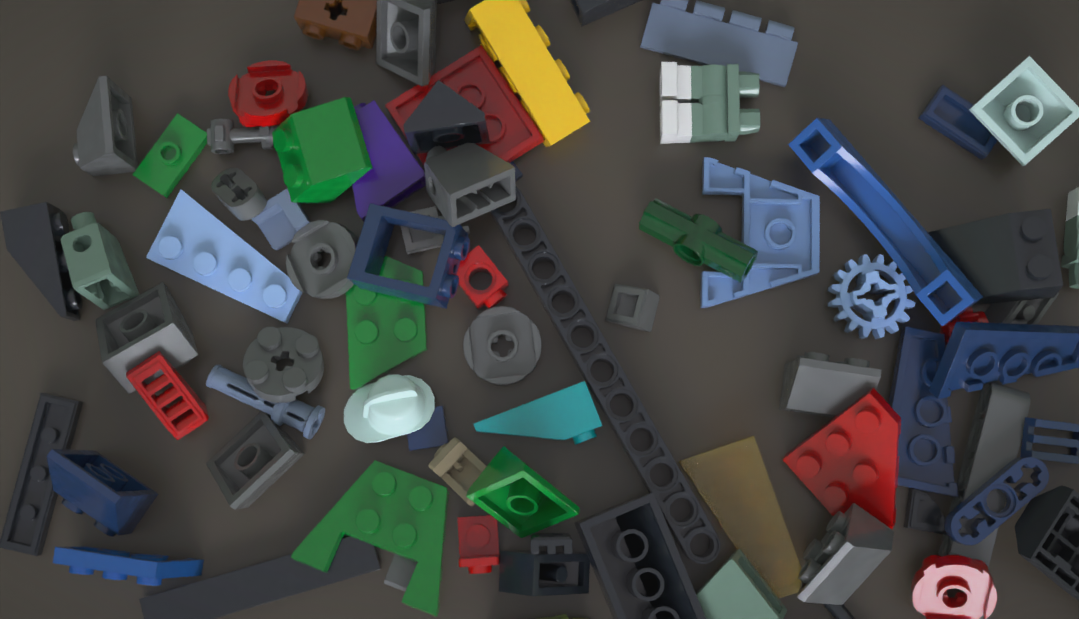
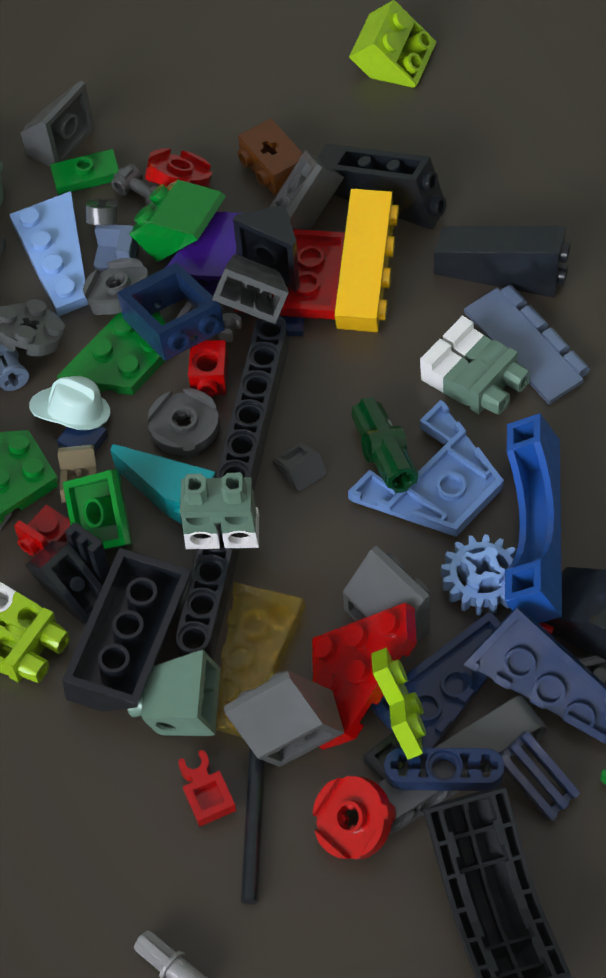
camera: 45 degrees right, 25 degrees down
(649, 433) = (219, 505): none -> sand green hips
(930, 477) = (404, 707): none -> lime plate

